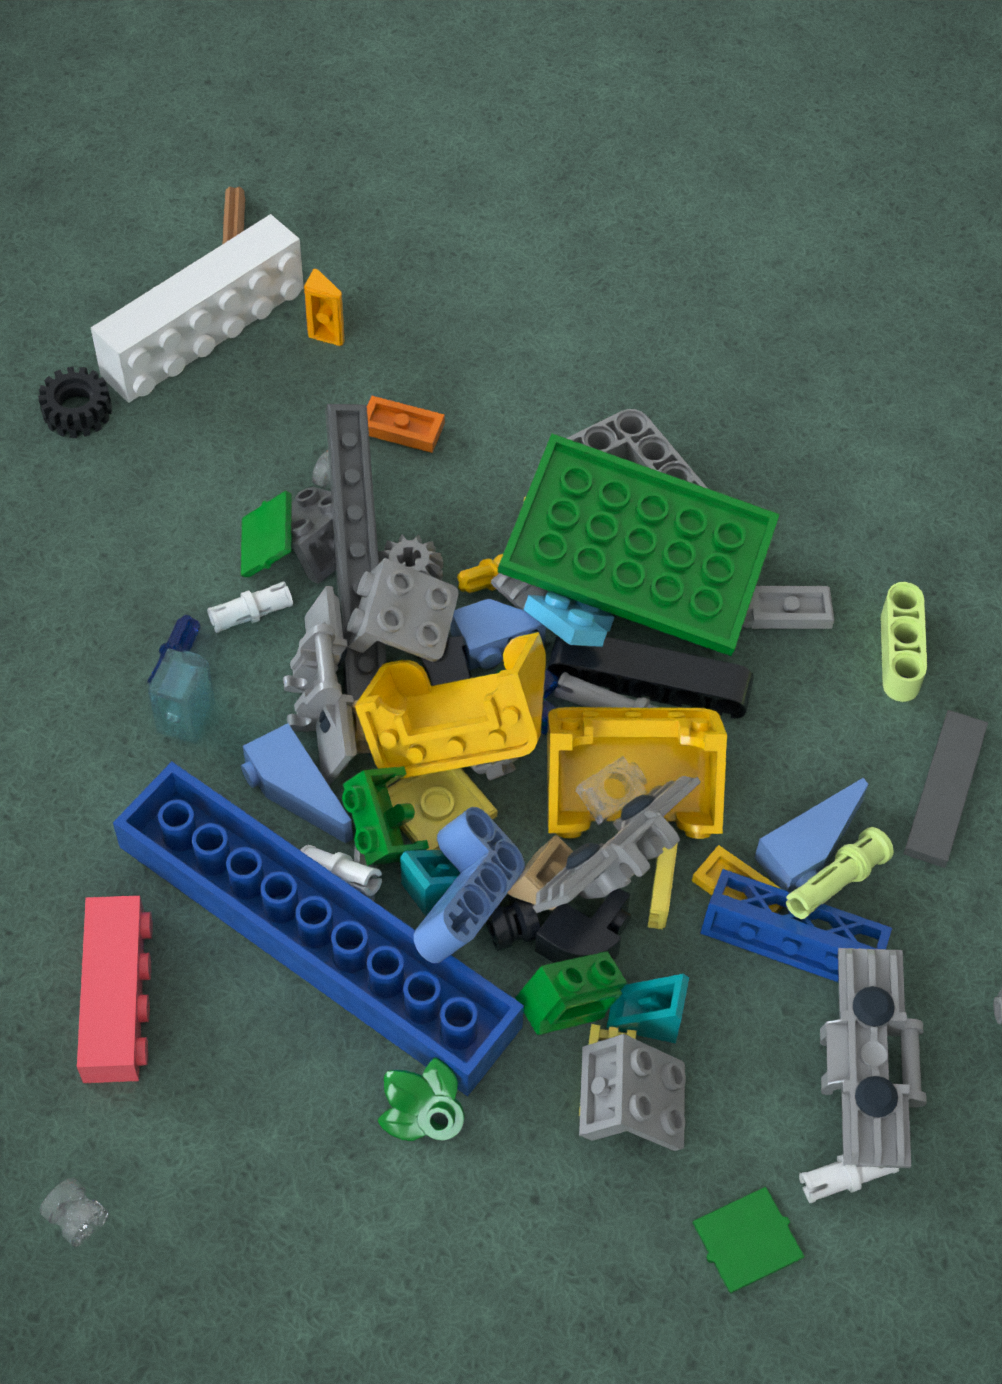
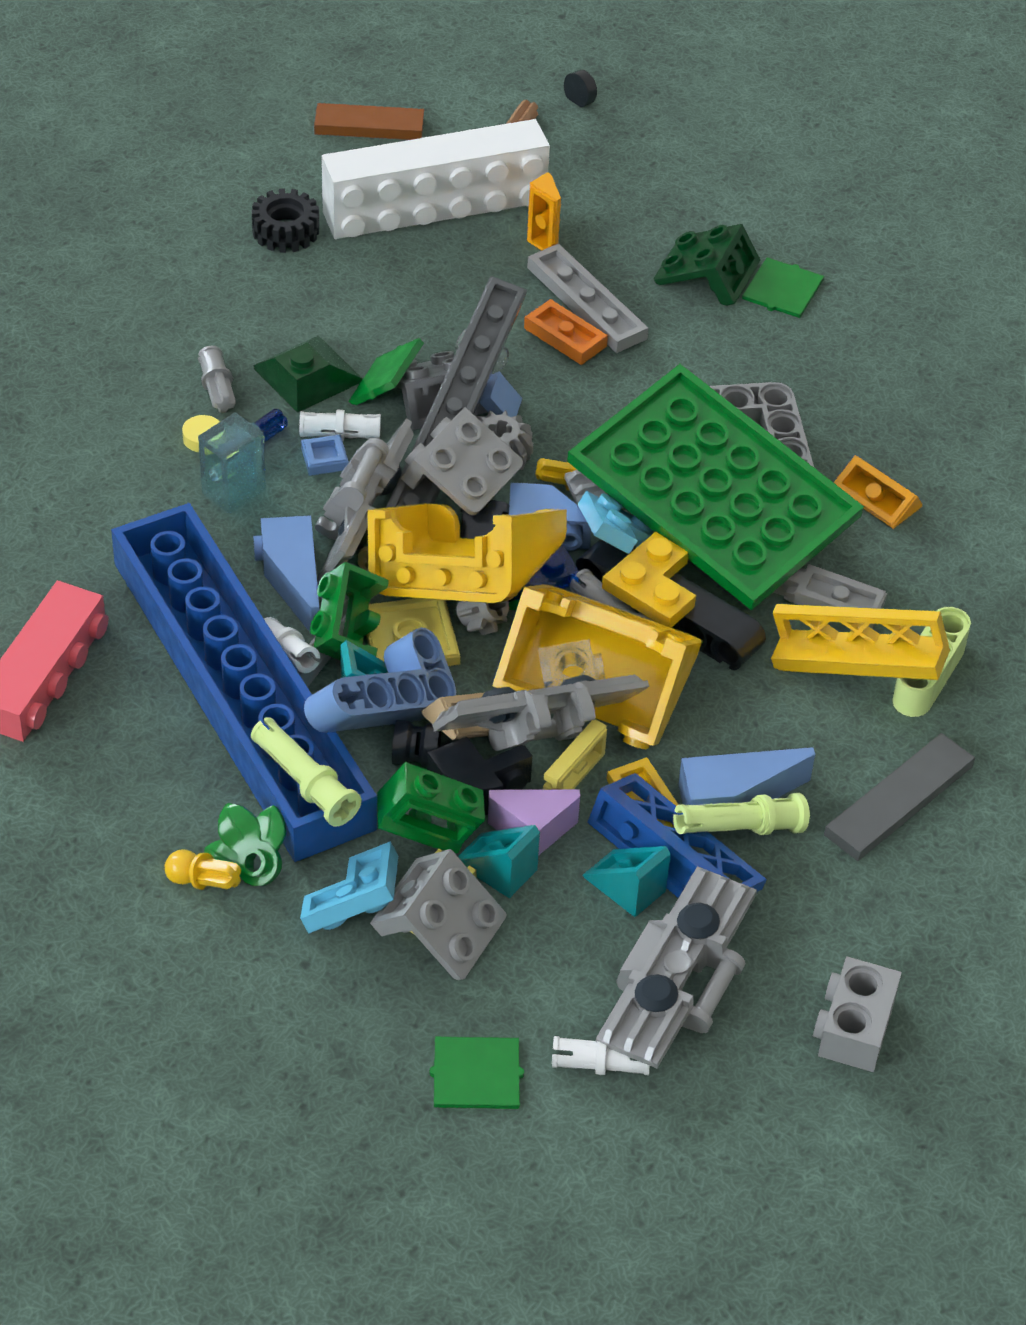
camera: 25 degrees right, 10 degrees down
(92, 261) = (369, 121): none -> dark orange tile
(105, 602) = (216, 378): none -> light grey axle
(124, 667) = (194, 427): none -> light yellow tile
(185, 561) = (307, 373): none -> dark green slope
(252, 644) = (324, 454): none -> medium blue tile
(272, 156) = (580, 88): none -> black tile
(370, 1149) = (201, 870): none -> yellow axle
(388, 521) = (500, 396): none -> medium blue tile
(400, 379) = (587, 297): none -> light grey plate
(470, 1021) = (317, 782): none -> yellowish green pin
(486, 296) = (719, 254): none -> dark green bracket
(556, 1108) = (366, 889): none -> medium azure plate
(563, 301) = (783, 287): none -> green piece
(626, 669) = (645, 581): none -> yellow plate
(656, 952) = (550, 810): none -> lavender slope
(759, 485) = (878, 492): none -> light orange slope
(770, 974) = (632, 876): none -> teal slope
(845, 657) = (862, 649): none -> yellow fence

